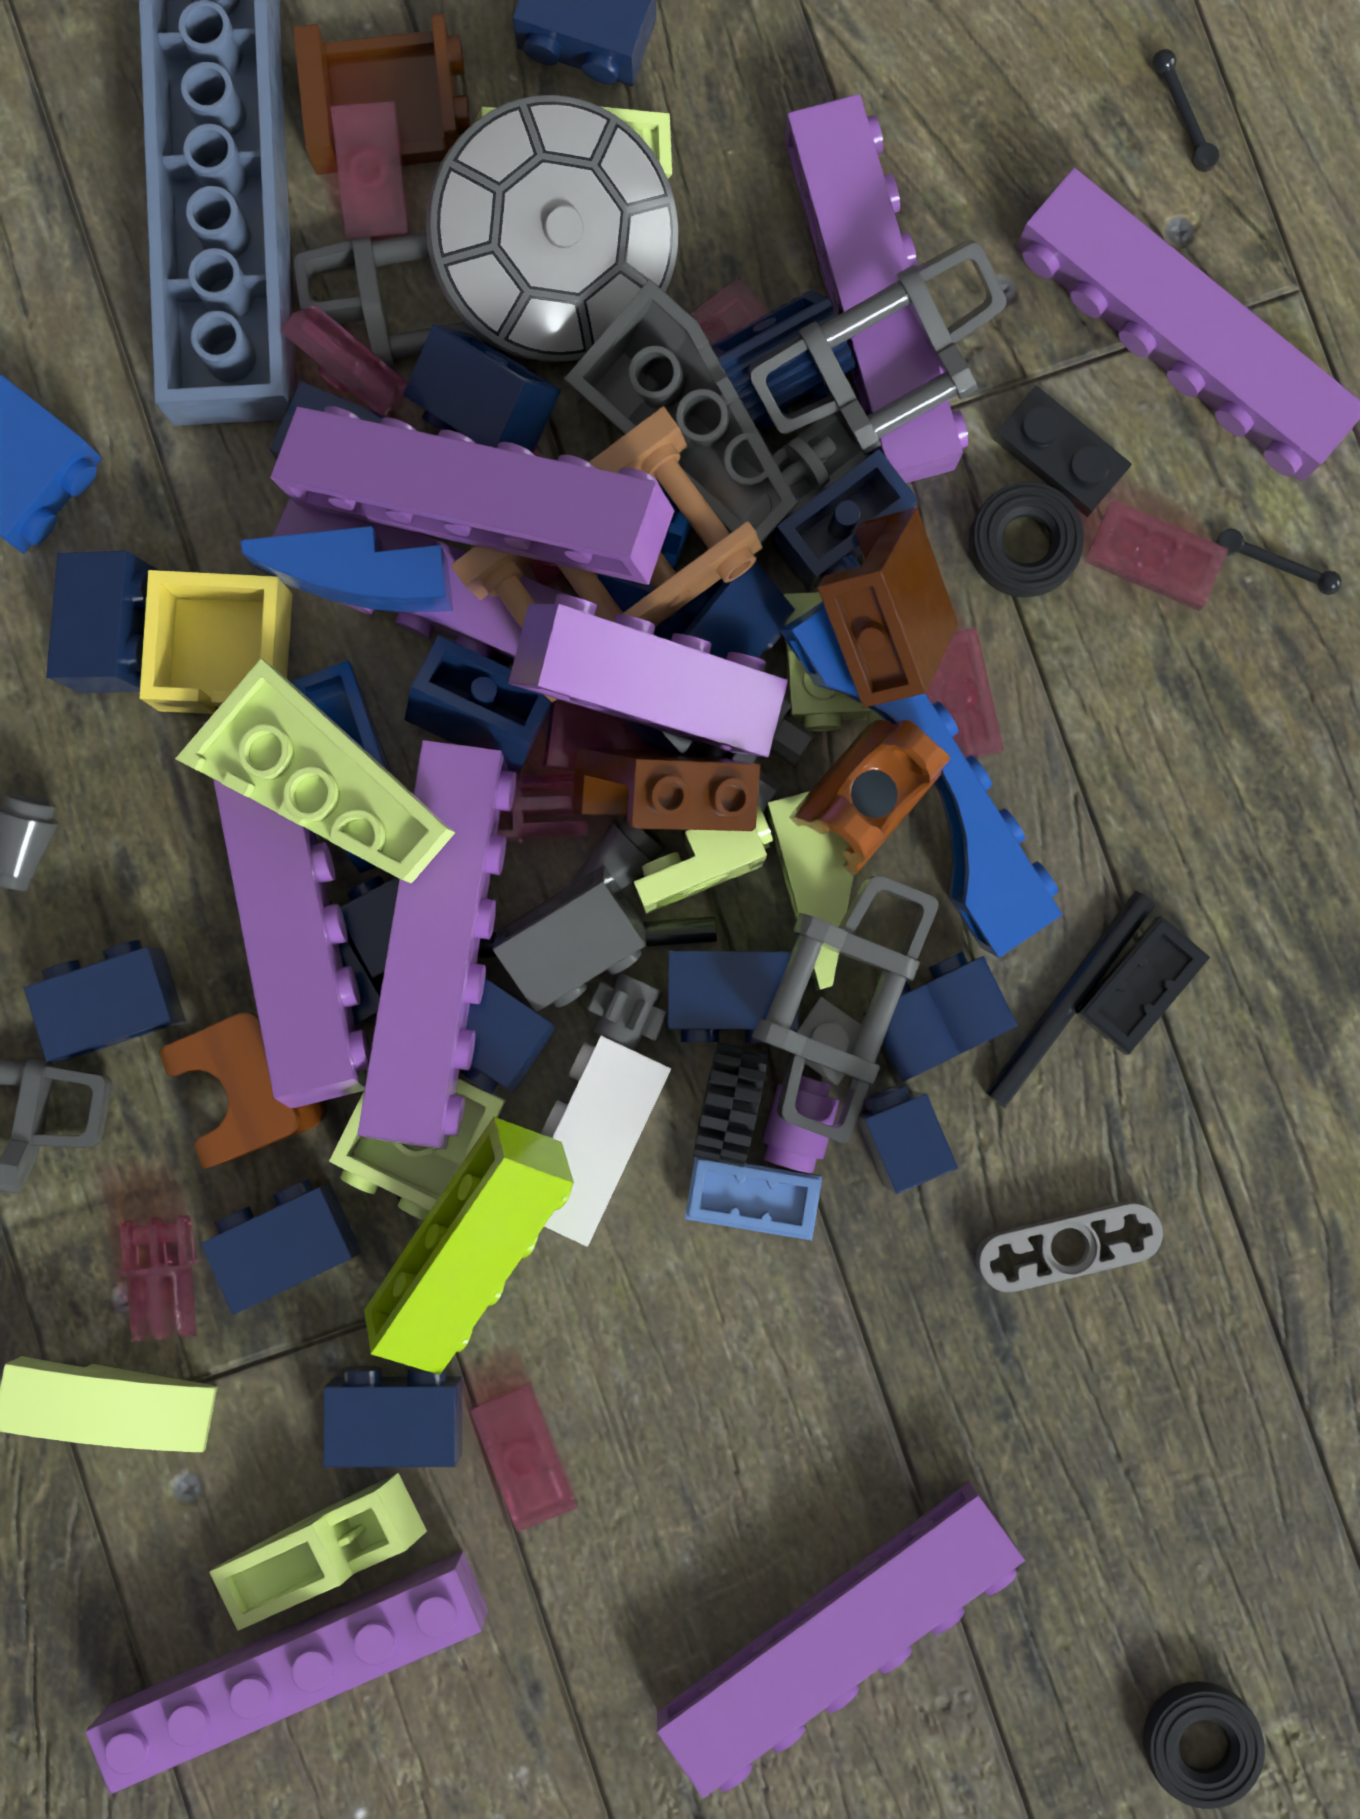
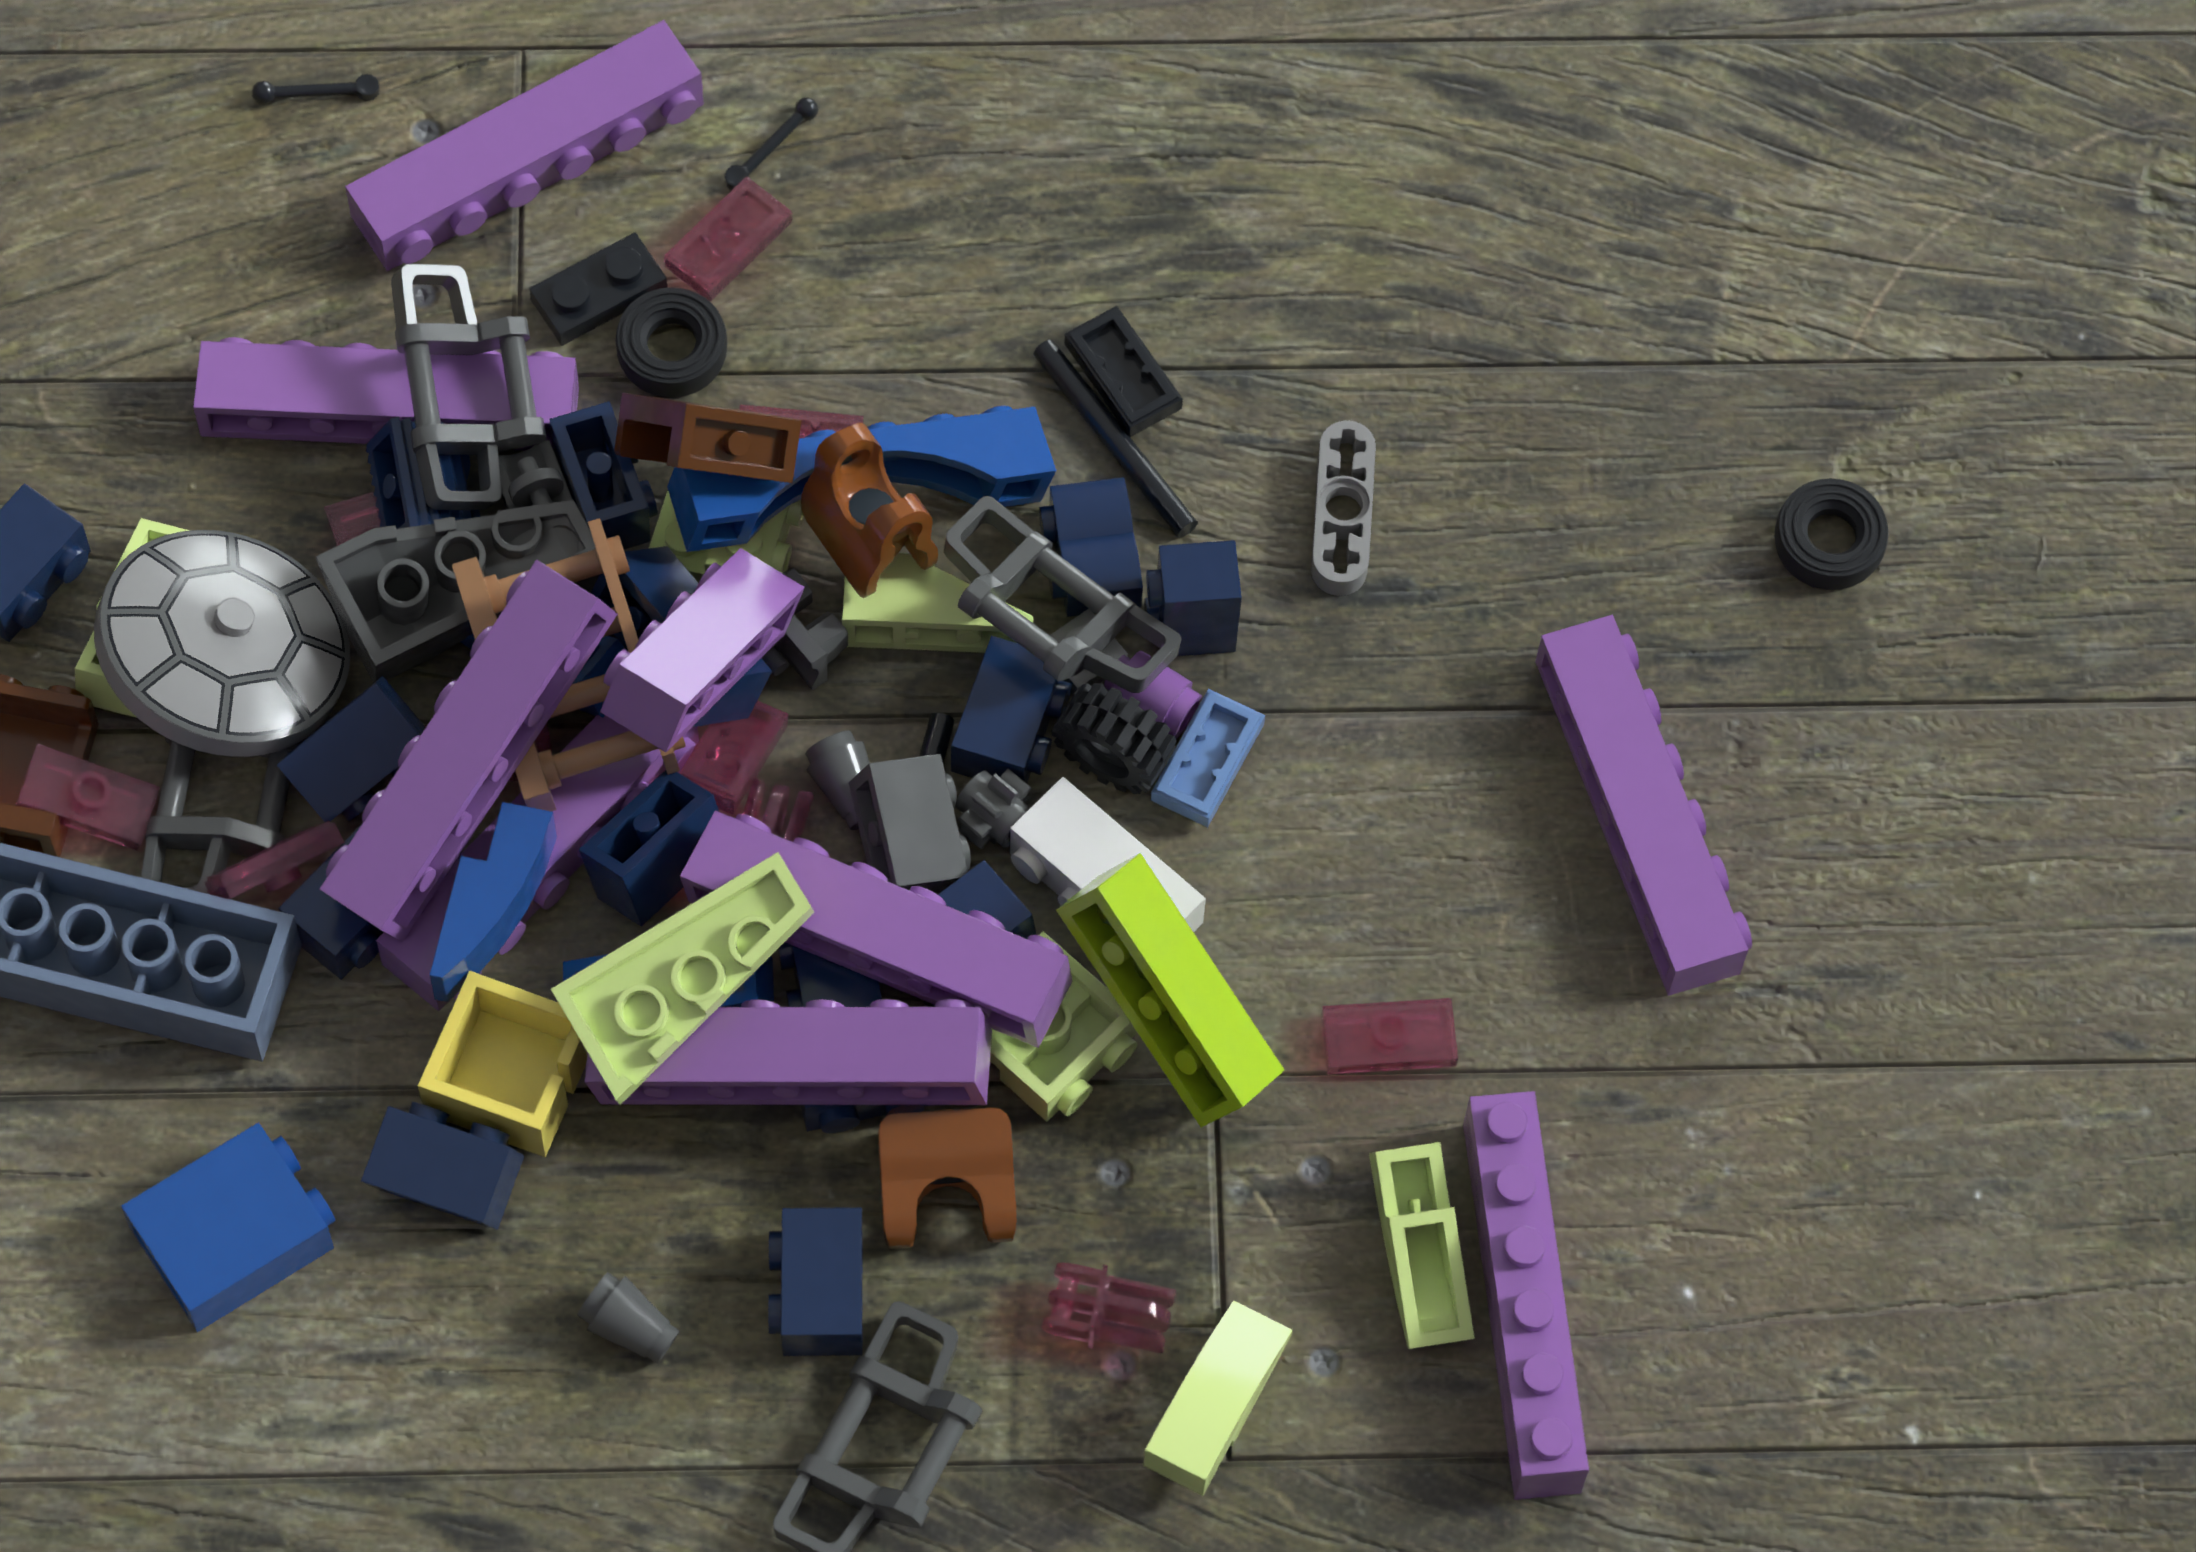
camera: 75 degrees left, 20 degrees down
(280, 1247) = (1114, 1186): dark blue brick -> none
(392, 1419) = (1314, 1134): dark blue brick -> none
(667, 789) = (800, 687): reddish brown panel -> none
(712, 861) = (871, 682): yellowish green plate -> none

